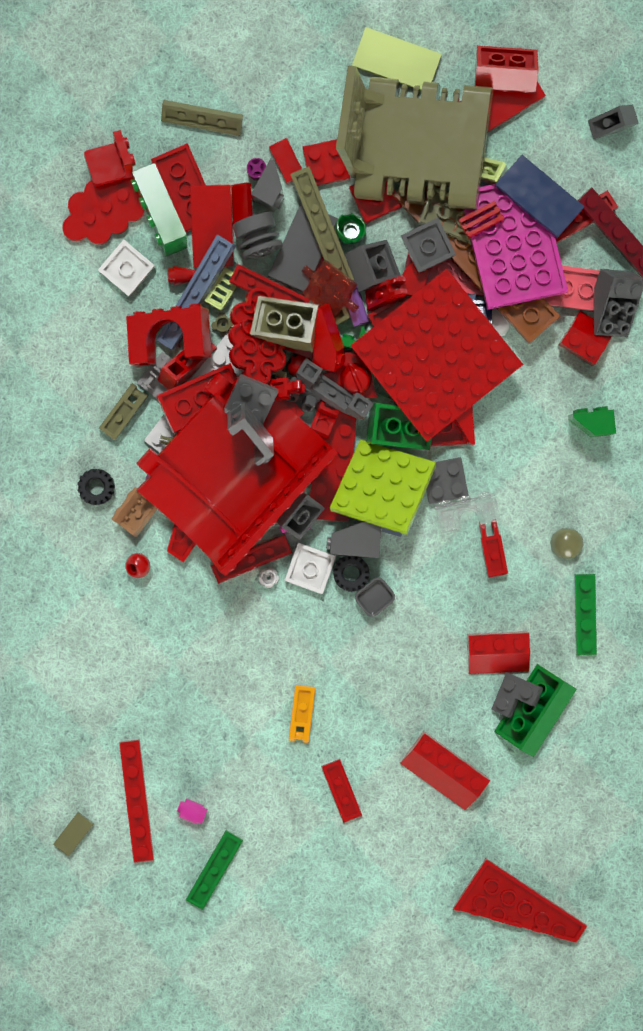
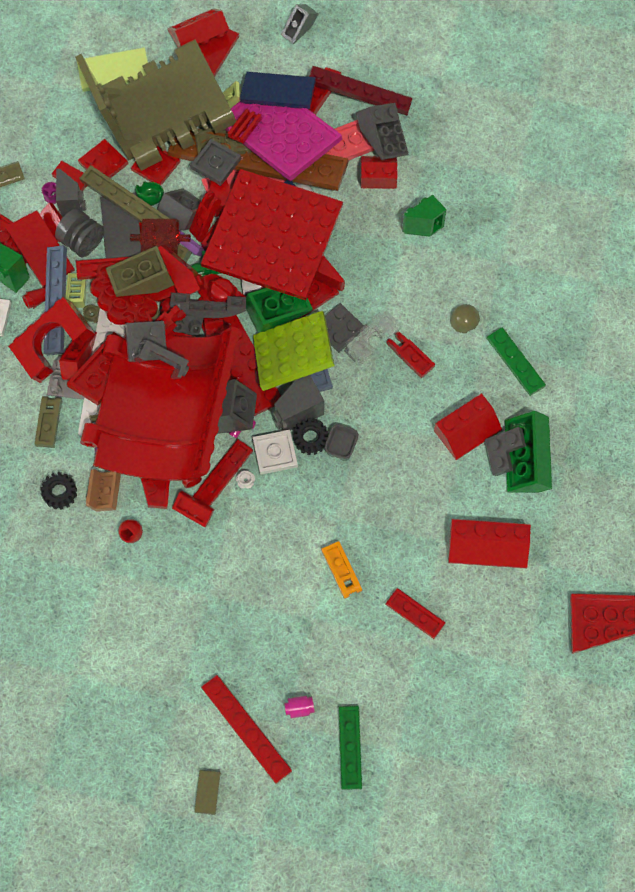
camera: 30 degrees left, 20 degrees down
(205, 578) = (193, 509): none -> red plate

